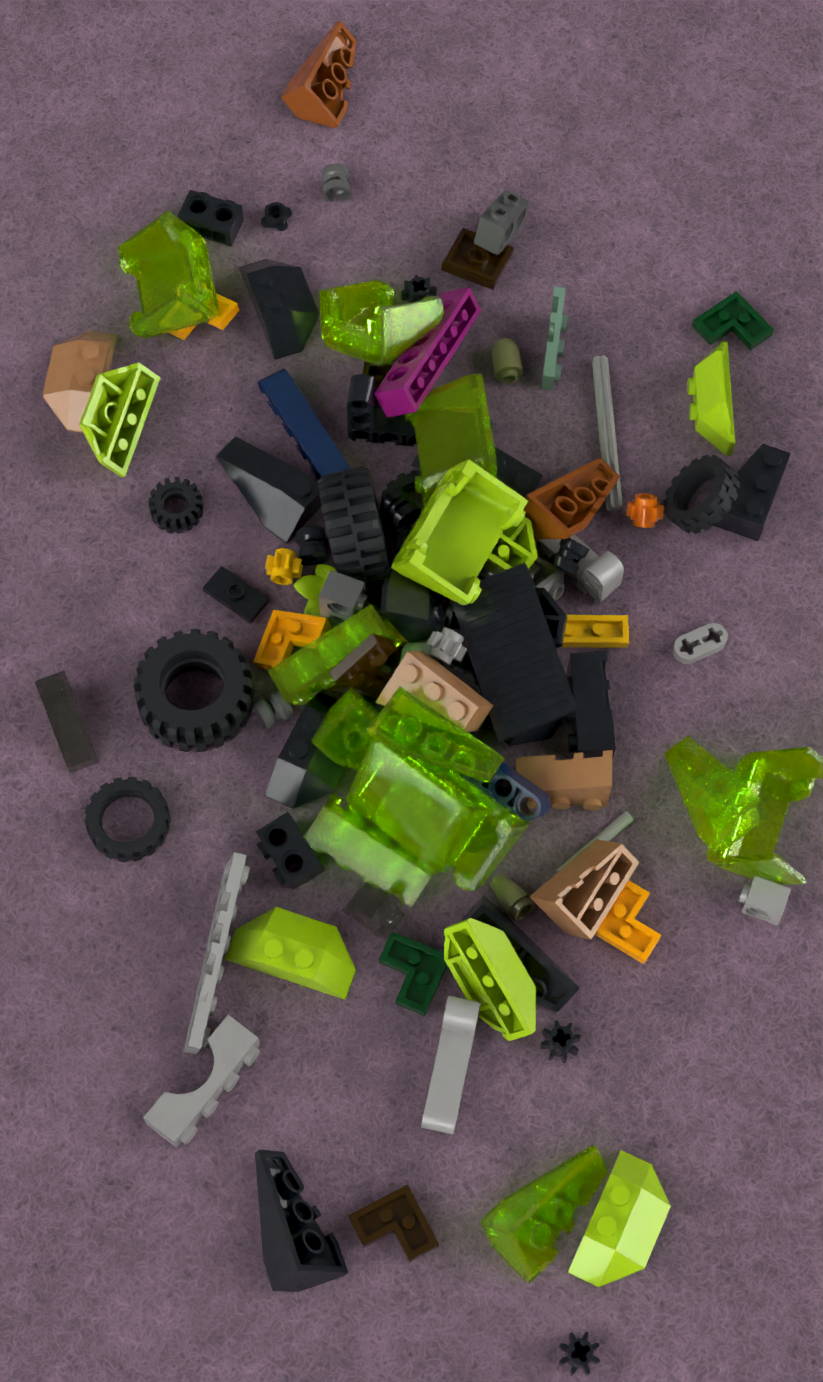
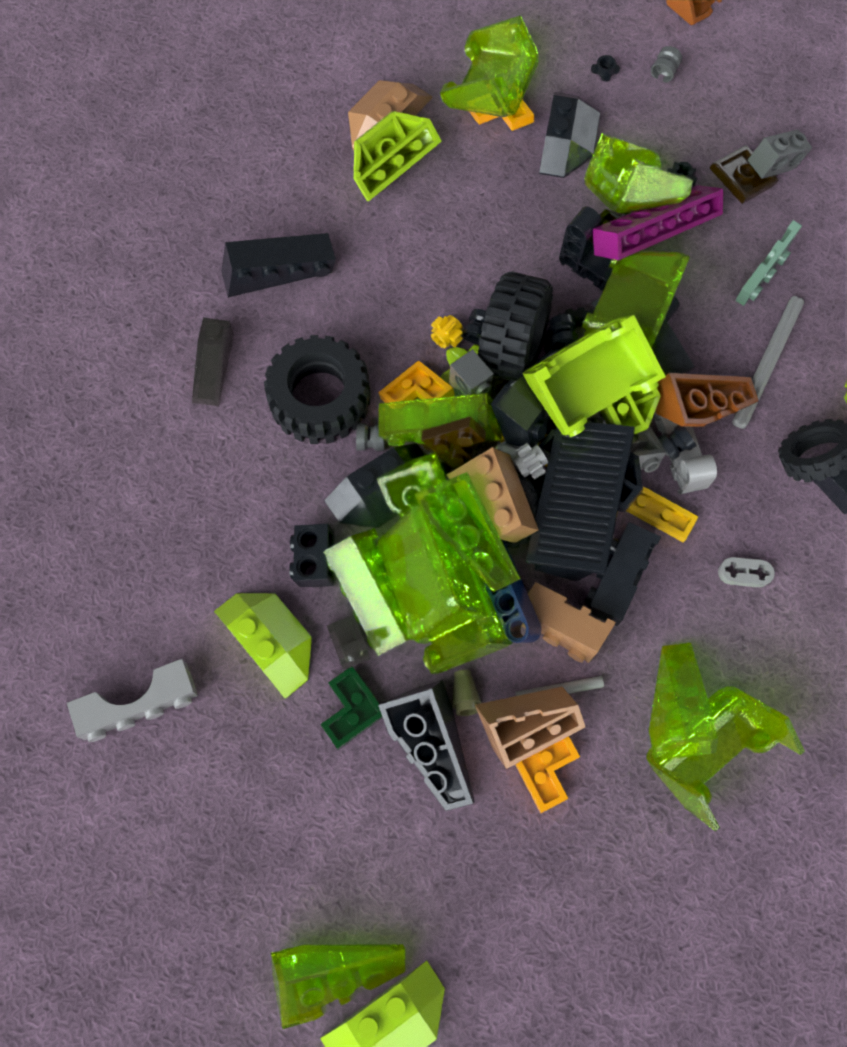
camera: 30 degrees right, 5 degrees up
(68, 588) = (275, 262): none -> black wedge
(126, 788) = (199, 436): black tyre -> none
(175, 490) = (399, 230): black tyre -> none
(211, 222) = (555, 44): black brick -> none
(233, 877) = (174, 638): light grey wing -> none
(236, 594) = (398, 334): black plate -> none
(274, 490) = (474, 265): black wedge -> none
(292, 1242) = (119, 876): black wedge -> none
(302, 424) = (528, 228): dark blue beam -> none
(397, 1214) = (216, 906): dark brown plate -> none
(451, 1065) = (329, 805): light grey beam -> none
(493, 975) = (405, 755): lime wedge -> none
(506, 361) = (719, 263): olive brick -> none
(554, 1047) = (439, 834): black gear -> none
(645, 510) = (763, 439): orange gear -> none
(764, 900) = (674, 820): light grey brick -> none

